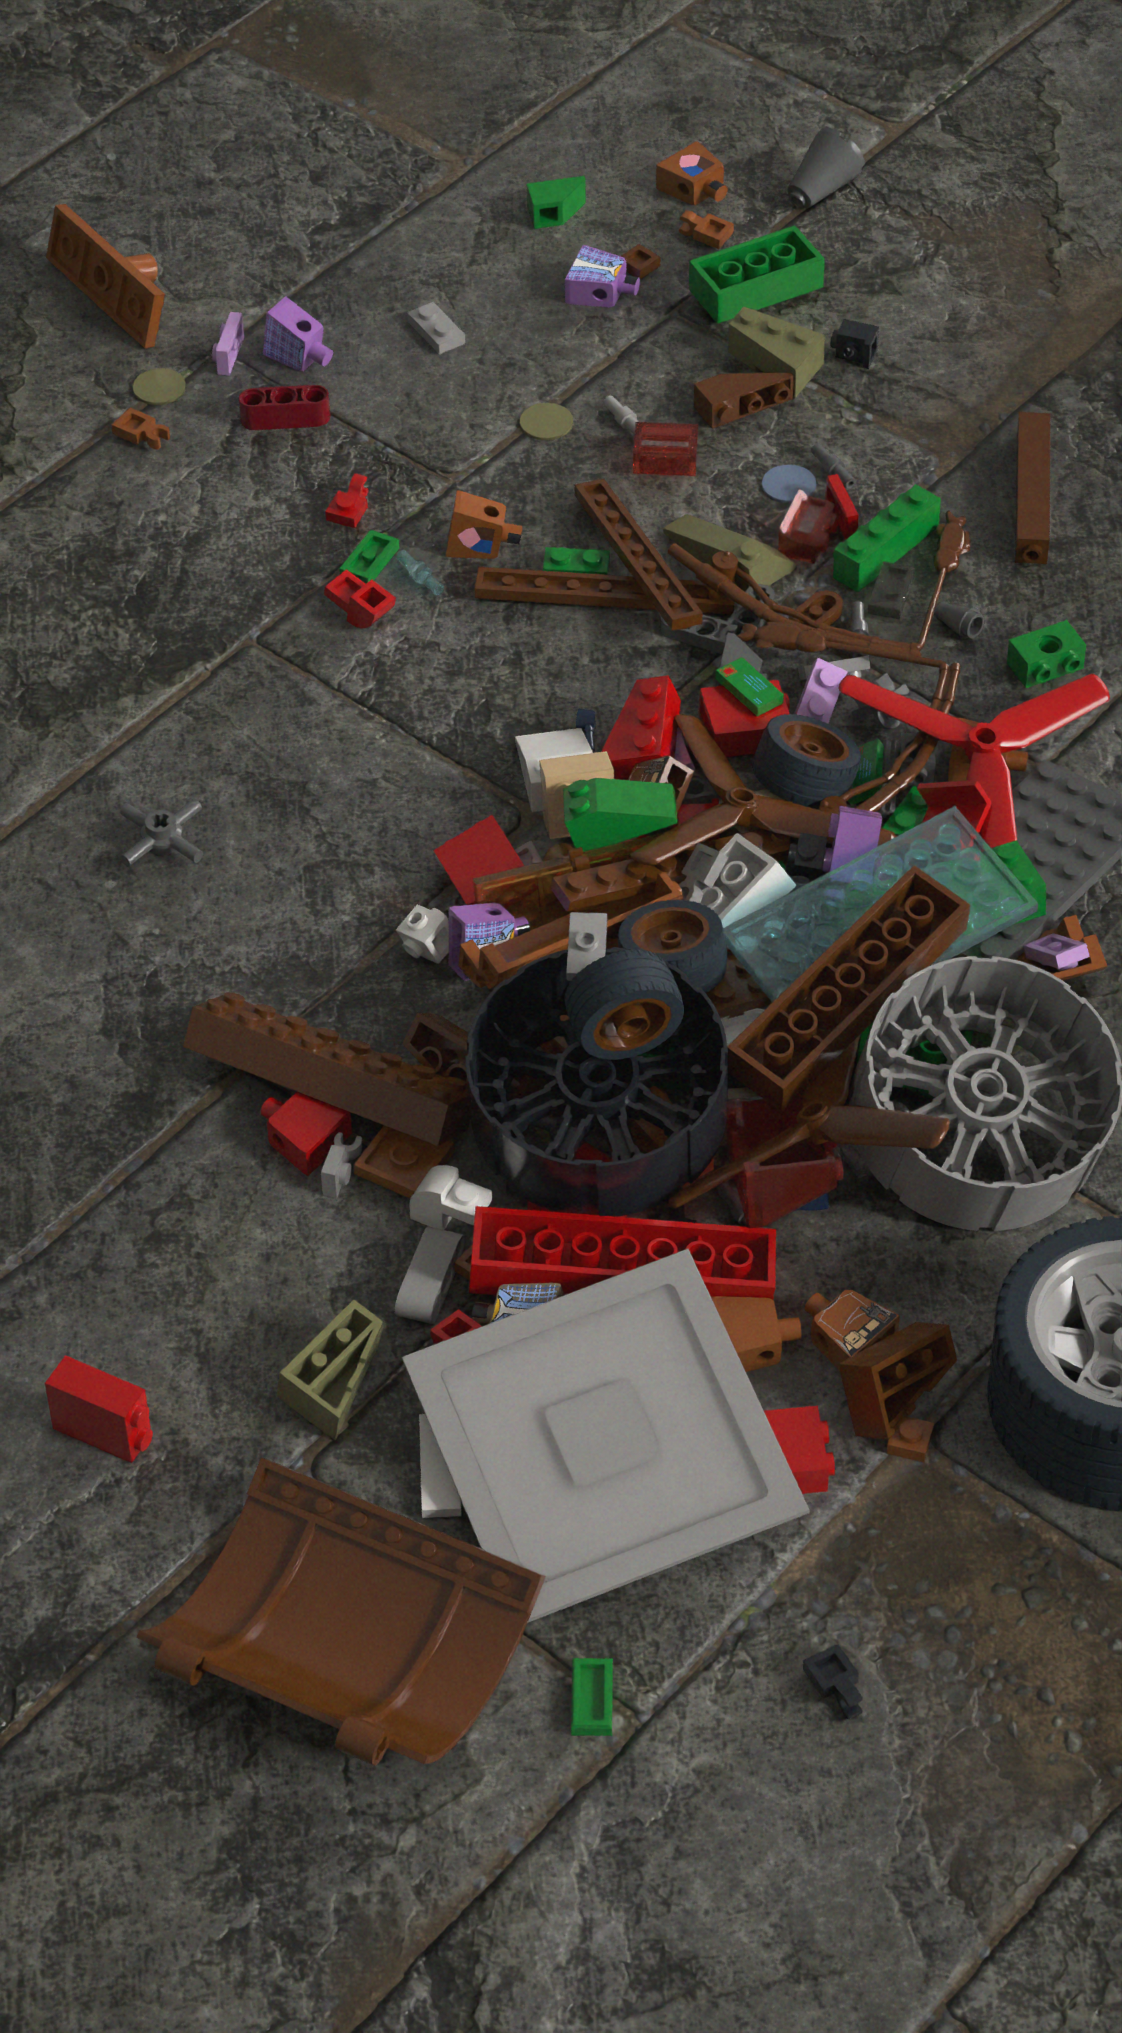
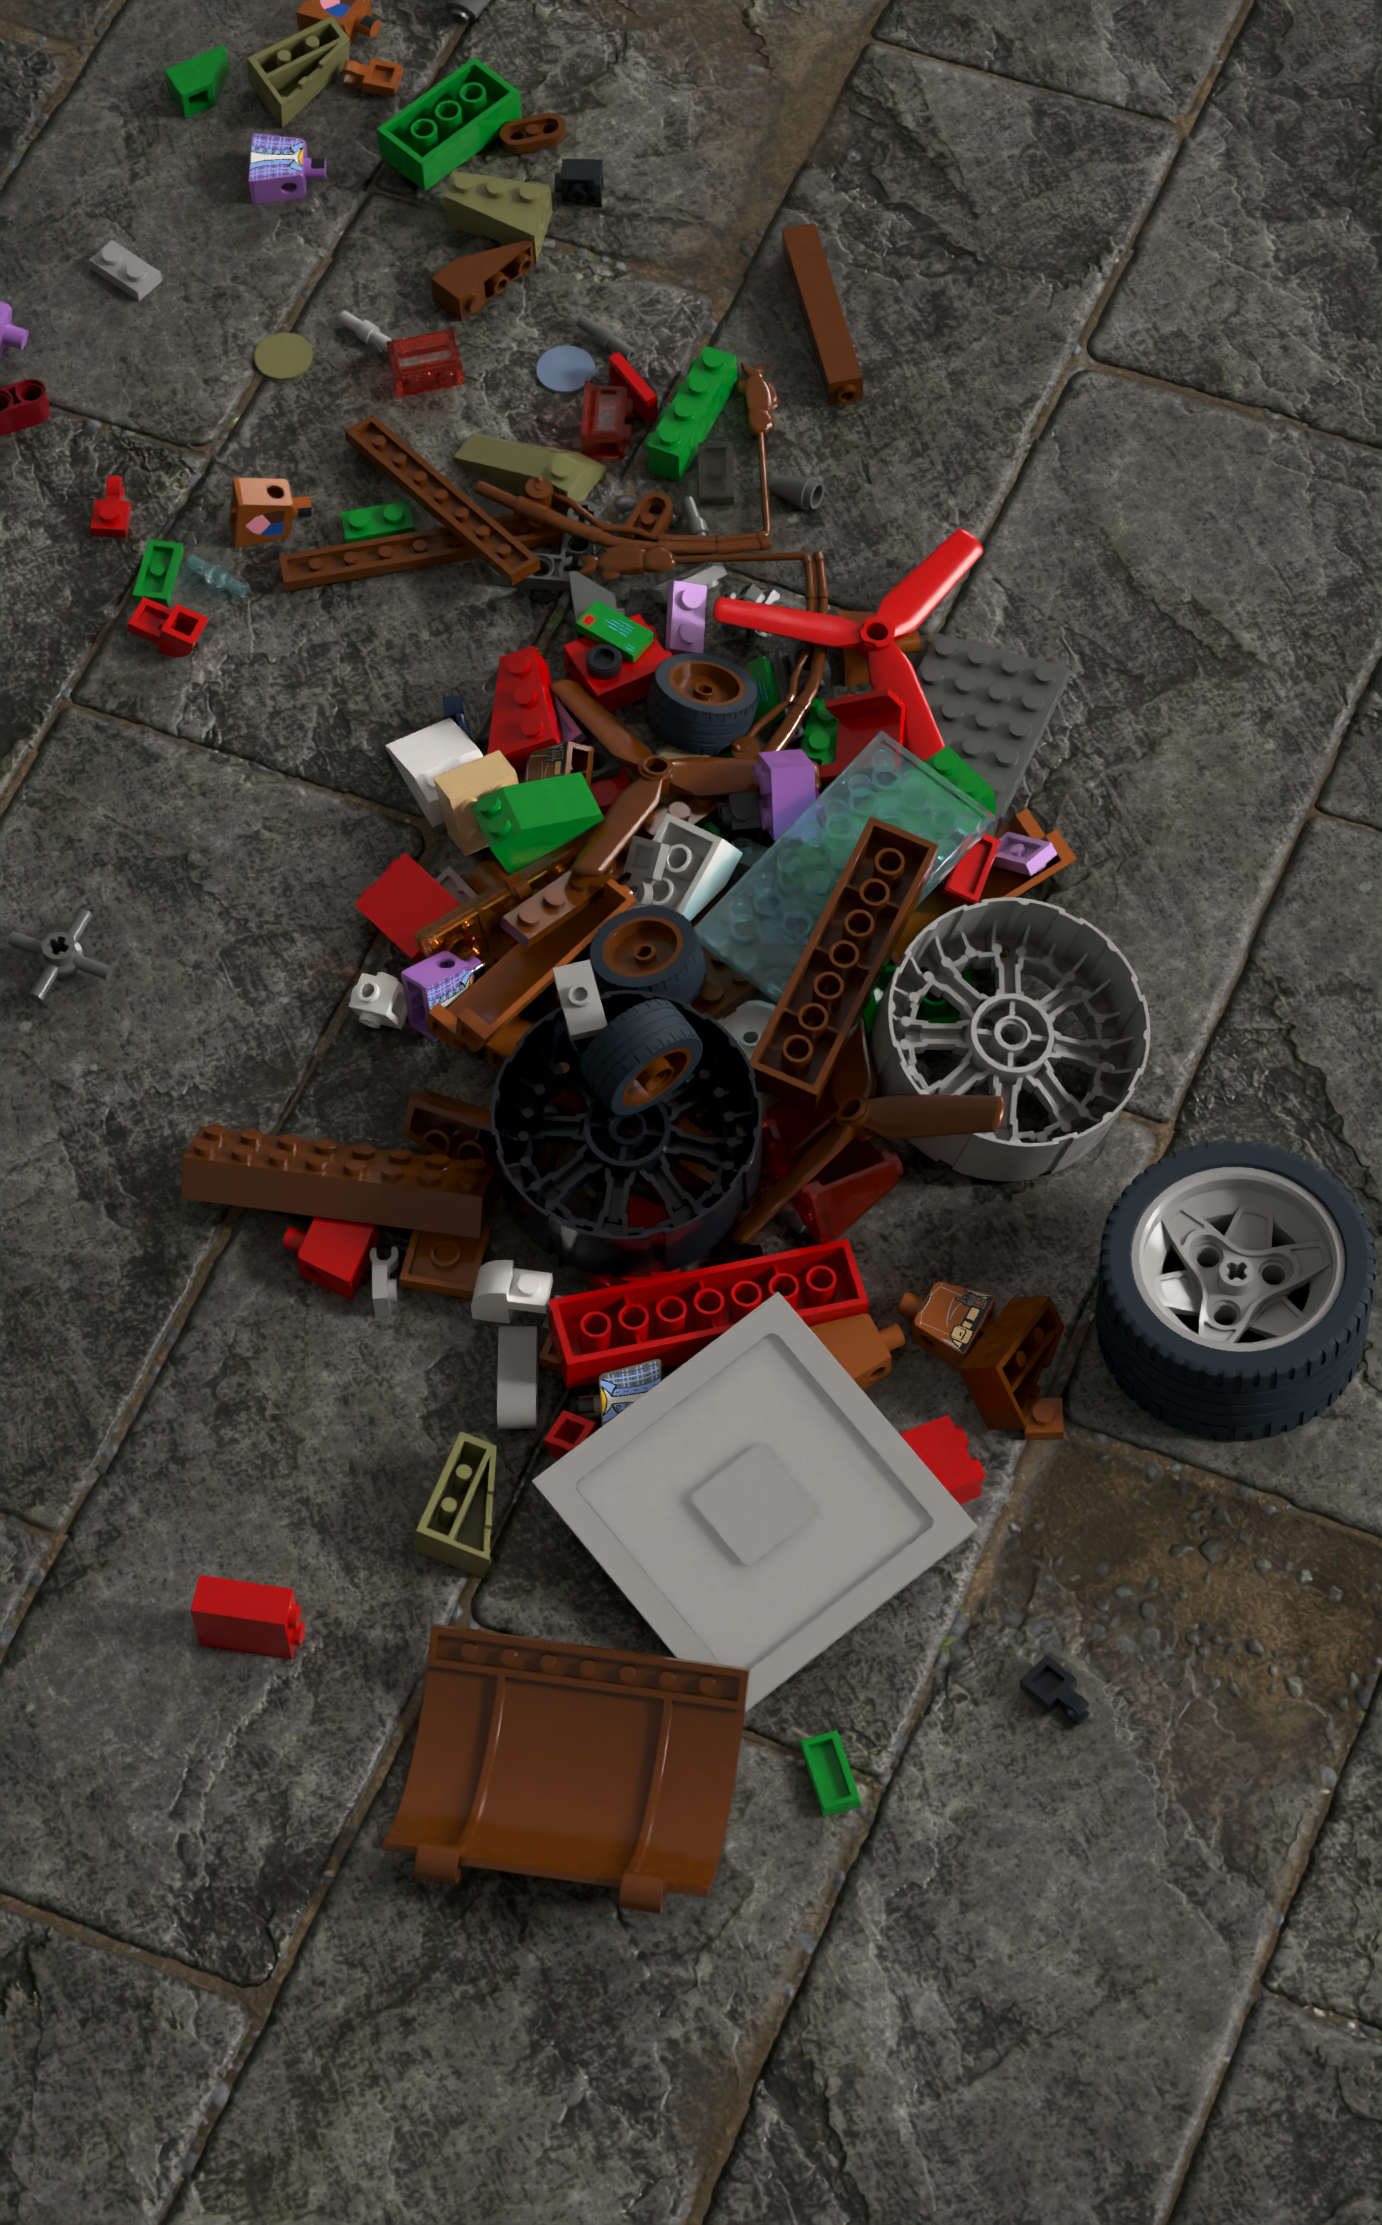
camera: 15 degrees left, 10 degrees up
(438, 1490) = (606, 1602): white tile -> none
(641, 261) = (318, 134): reddish brown plate -> none
(642, 206) = (298, 68): none -> olive wedge
(730, 708) = (604, 661): none -> black tile
(827, 298) = (532, 133): none -> reddish brown plate
(1011, 942) = (970, 874): none -> red tile
(1046, 653) = (899, 510): green brick -> none

